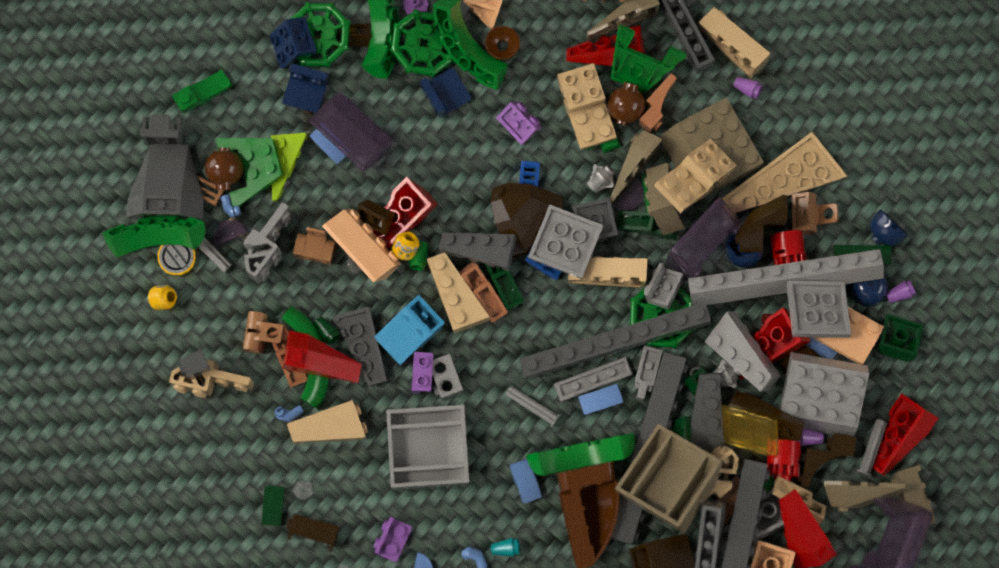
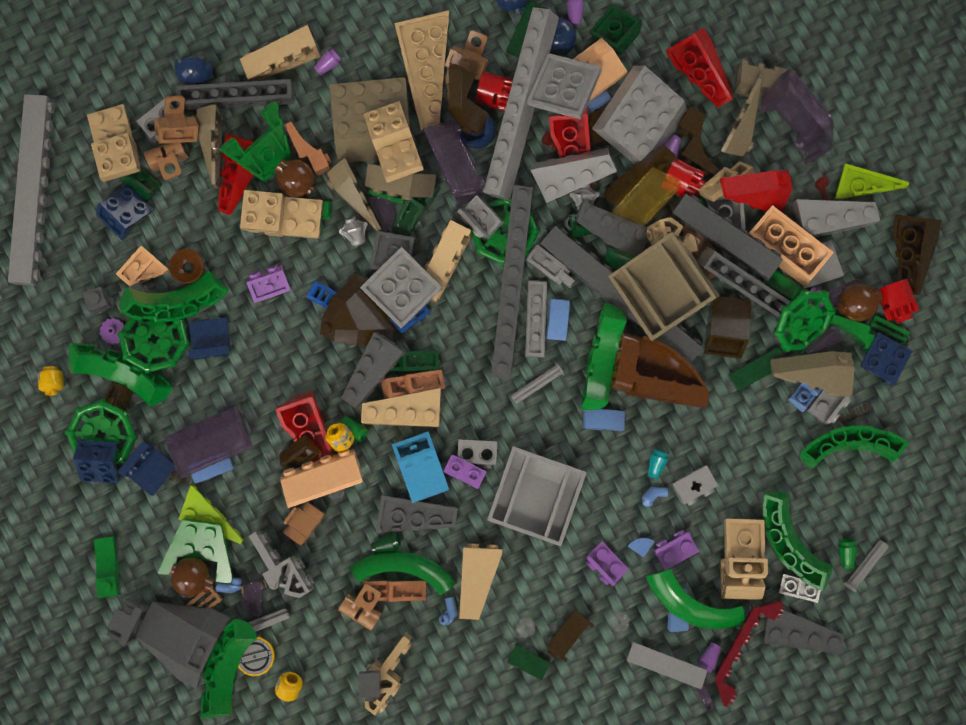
camera: 65 degrees left, 5 degrees up
(314, 357) = (408, 566): red wedge -> none
(872, 448) = (703, 97): light grey axle -> none

